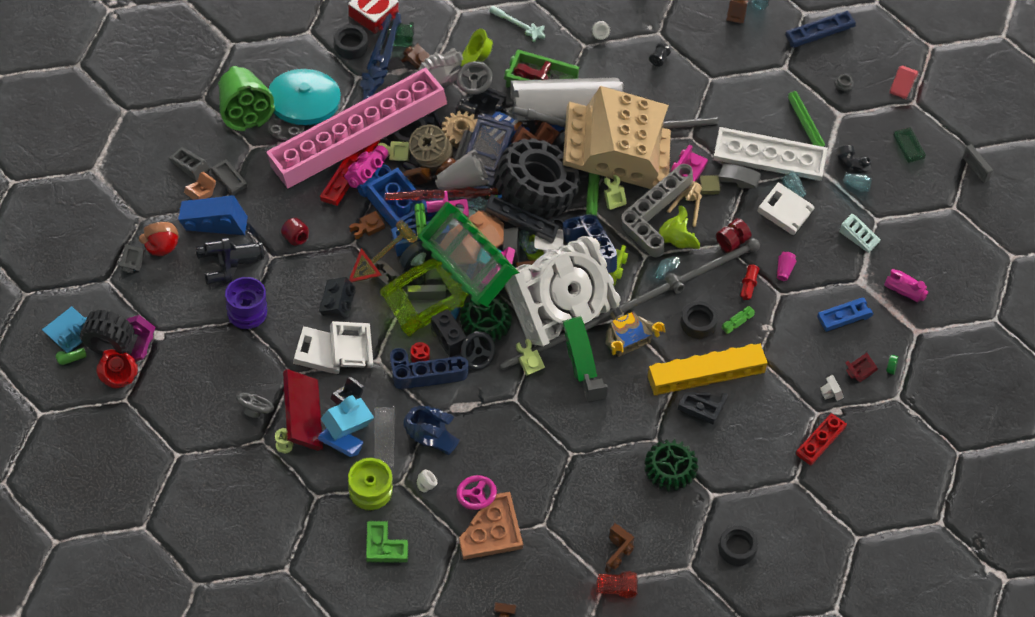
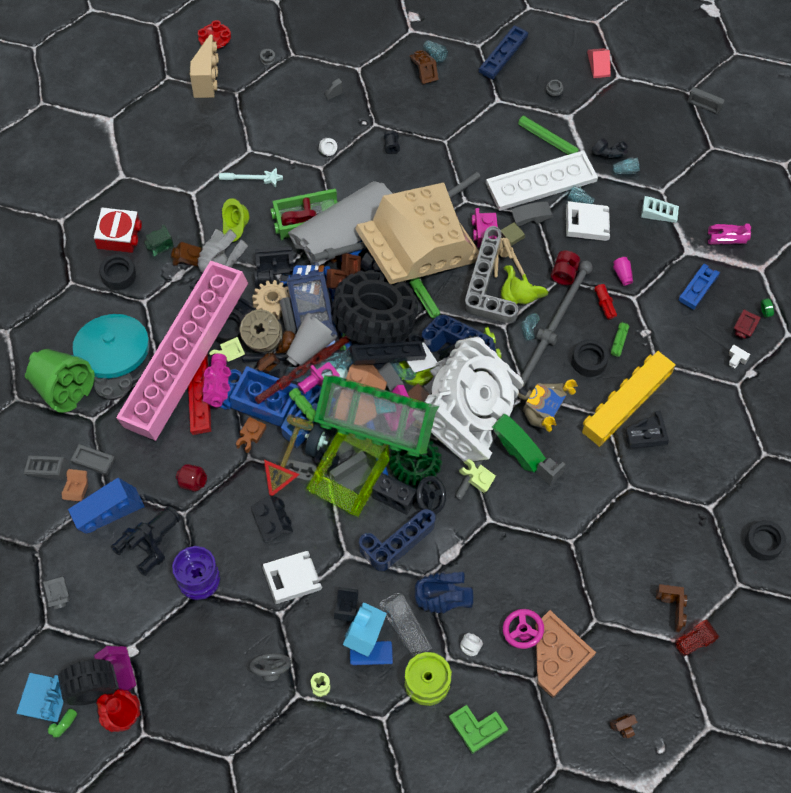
camera: 30 degrees left, 5 degrees up
(159, 238) = (71, 557): red piece -> none
(302, 409) = (318, 645): dark red tile -> none
(351, 350) = (319, 560): white container -> none
(375, 74) = (162, 290): dark blue sword -> none
(420, 349) = (382, 523): red wheel -> none
(476, 86) = (260, 253): dark grey piece -> none
(615, 194) = (445, 286): yellowish green plate -> none
(679, 458) = (671, 514): dark green gear -> none
(814, 445) = (758, 414): red tile -> none
(909, 145) = (641, 113): clear green tile -> none

